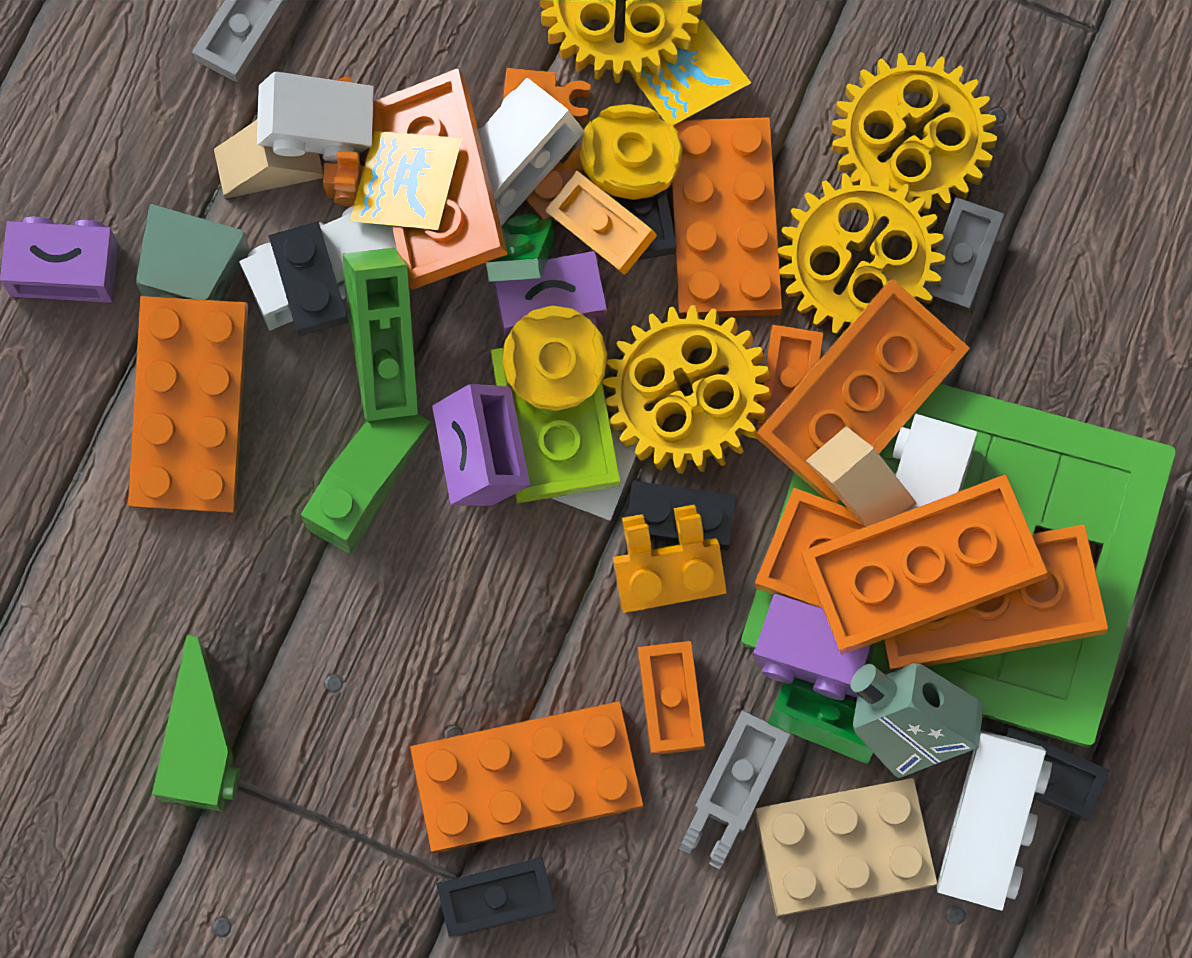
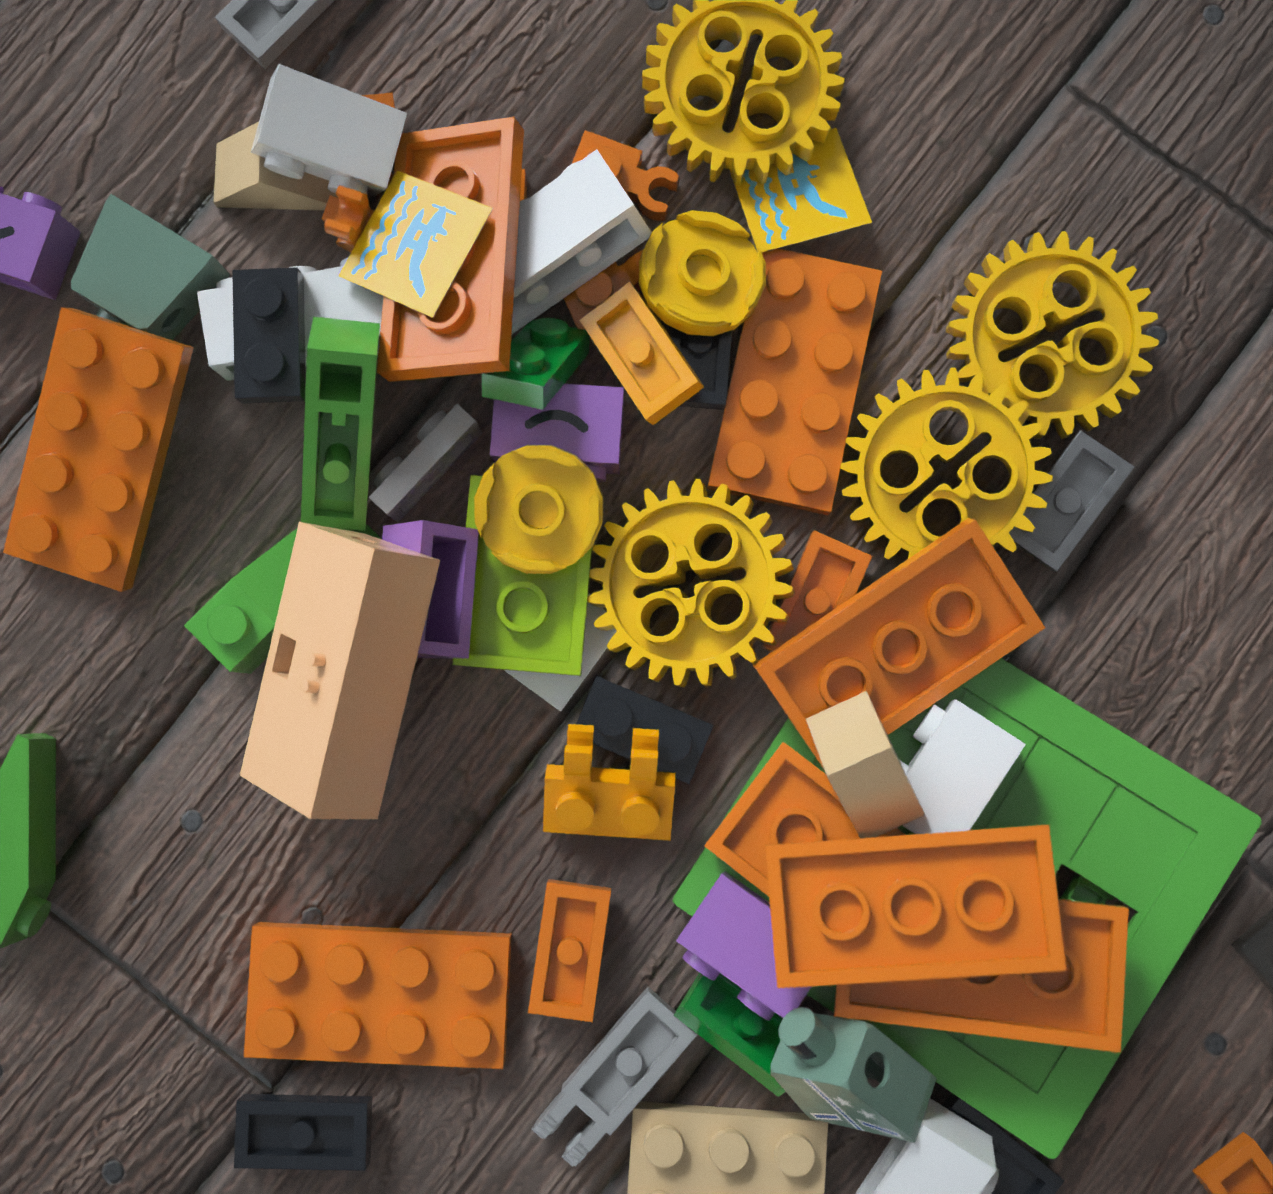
camera: 20 degrees right, 10 degrees up
(434, 513) = (338, 672): none -> light nougat brick
(460, 333) = (442, 443): none -> light grey plate

